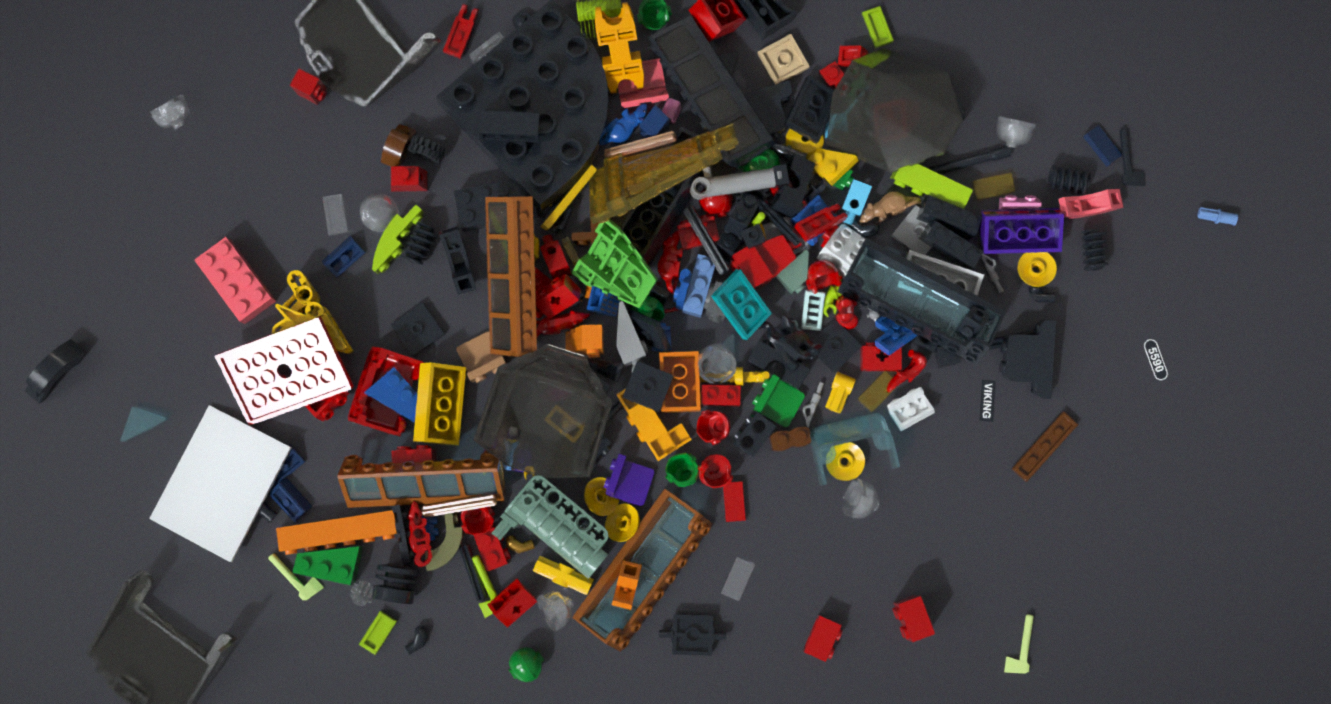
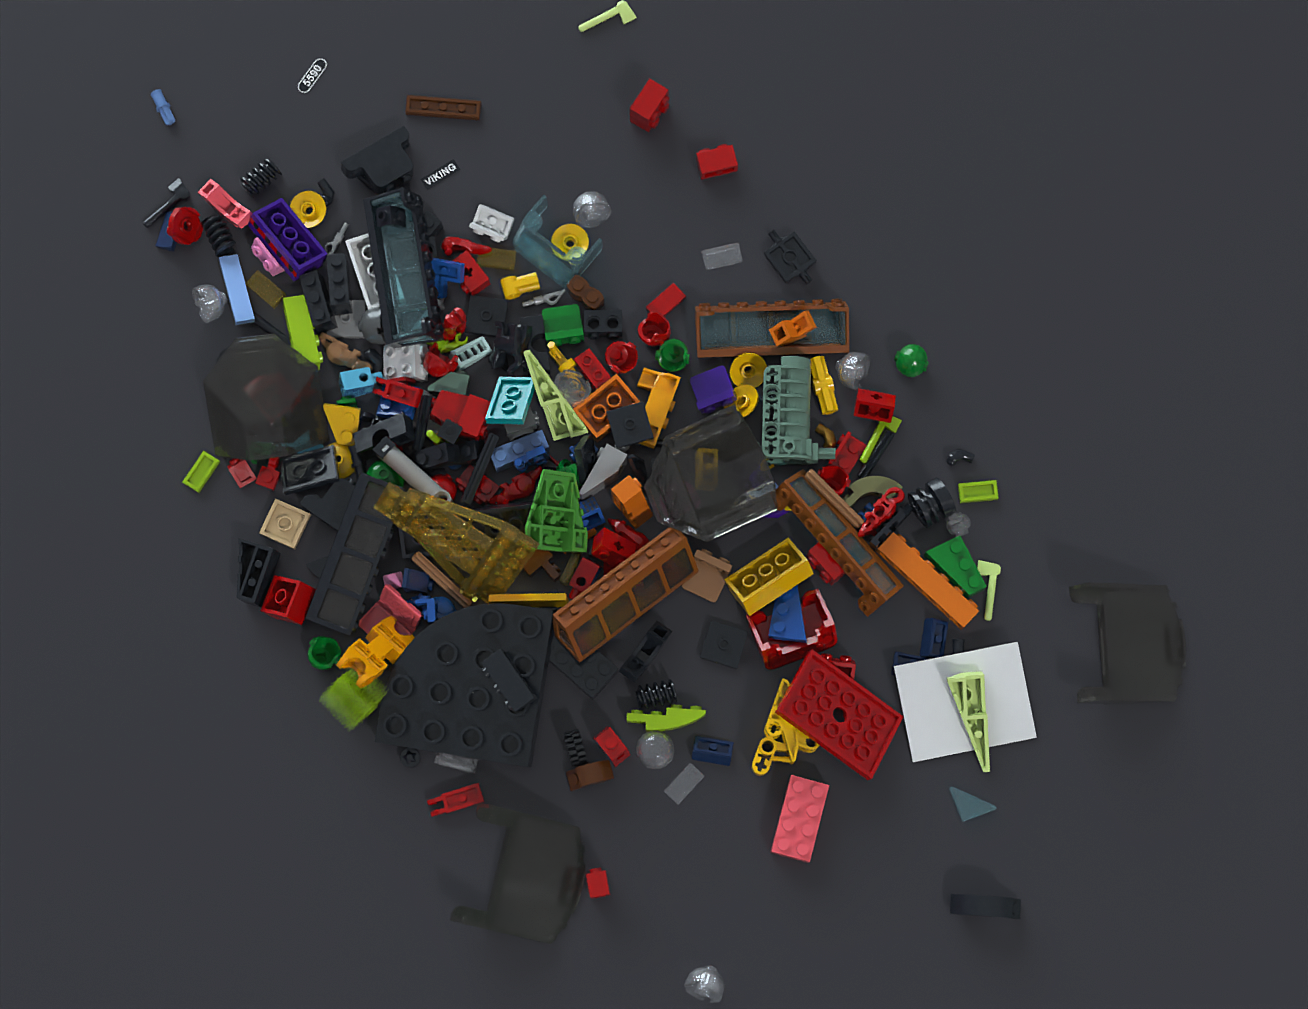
camera: 130 degrees left, 5 degrees down
(218, 487) = (969, 695): none -> yellowish green wedge
(620, 116) = (430, 611): none -> blue bracket
(703, 337) = (559, 414): none -> yellowish green wedge
(895, 242) = (372, 326): none -> dark grey cylinder
(1010, 160) = (236, 289): none -> light blue tile
(1103, 150) = (176, 225): none -> red plate

